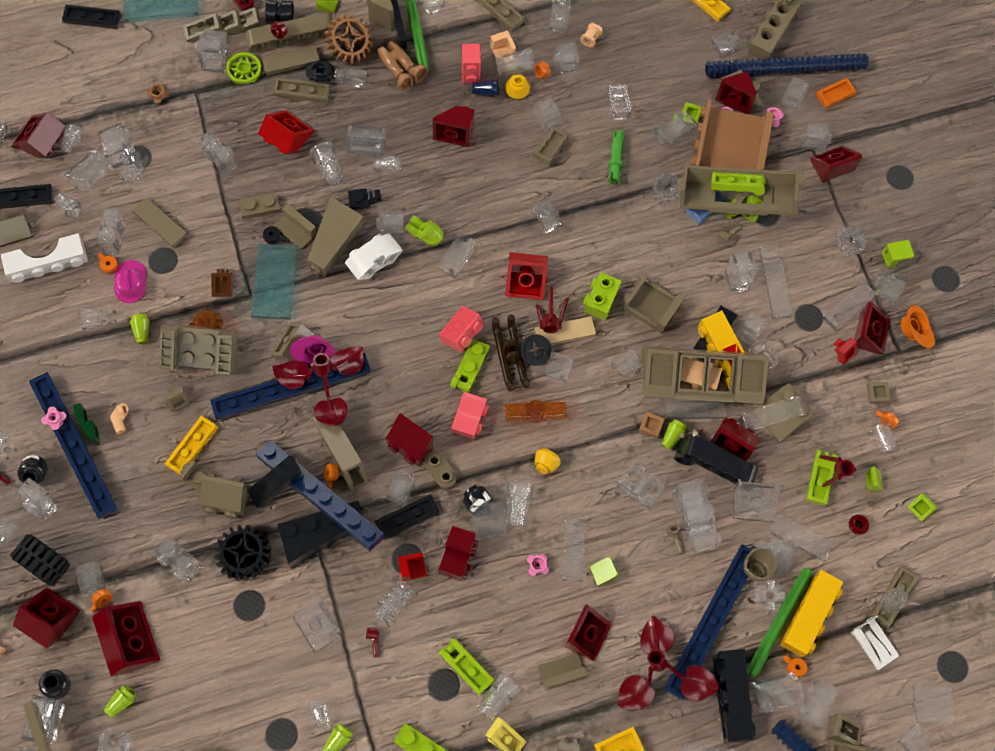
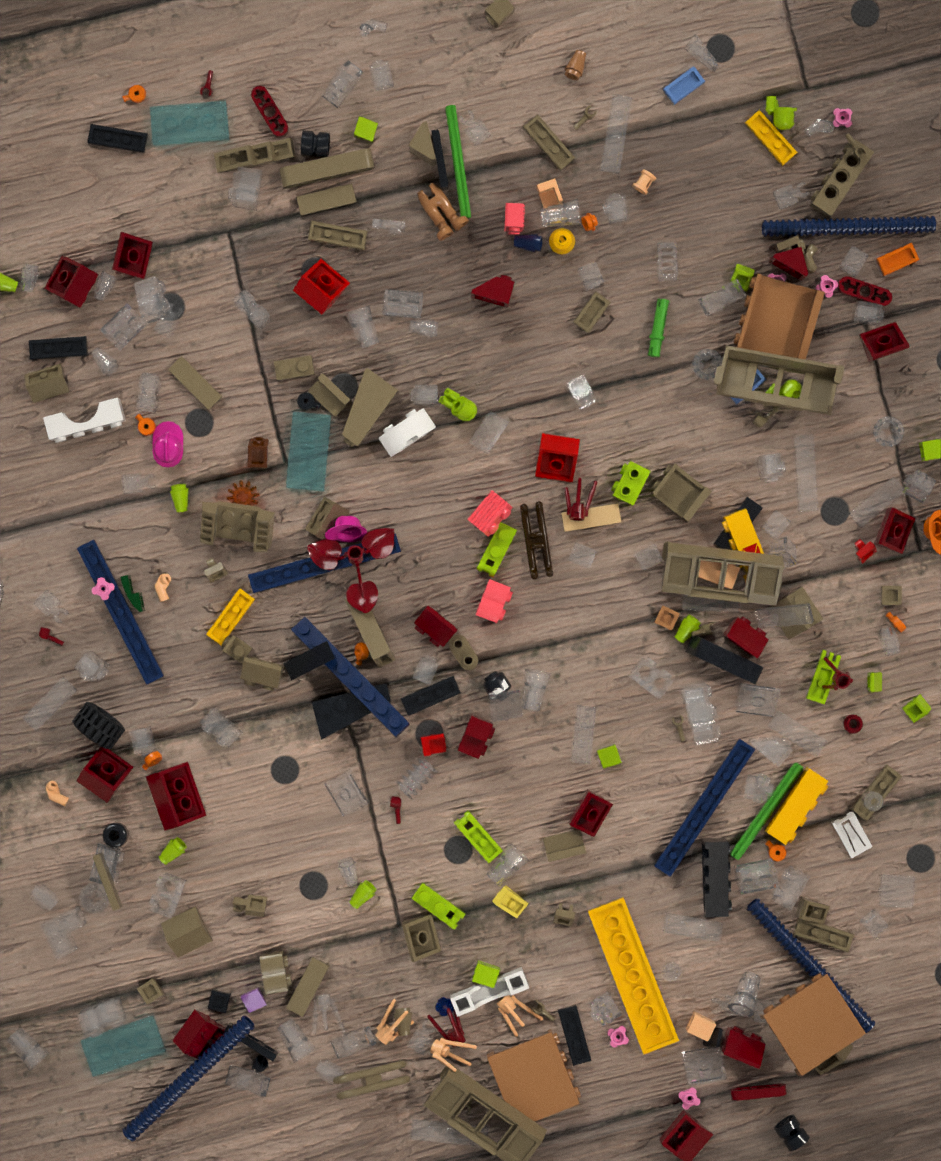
camera: 15 degrees right, 20 degrees up
(33, 468) = (85, 637): black head -> none
(98, 109) = (132, 256): none -> dark red slope
(157, 88) = (184, 235): medium nougat plate -> none
(234, 551) = (276, 740): black gear -> none
(243, 68) = (277, 207): lime wheel -> none
(278, 29) = (315, 173): dark red plate -> none
(325, 70) = (357, 209): black gear -> none
(348, 23) = (395, 181): medium nougat gear -> none
(360, 199) = (394, 364): black plate -> none
(533, 560) = (553, 750): bright pink plate -> none
(543, 354) = (568, 540): black gear -> none
(546, 461) = (563, 650): yellow cone -> none
(549, 411) = (542, 599): clear orange piece -> none
(654, 640) = (628, 865): dark red plant -> none
(738, 182) = (778, 370): lime plate -> none
(760, 564) = (752, 762): dark tan hair -> none
(797, 112) = (852, 282): none -> dark red beam

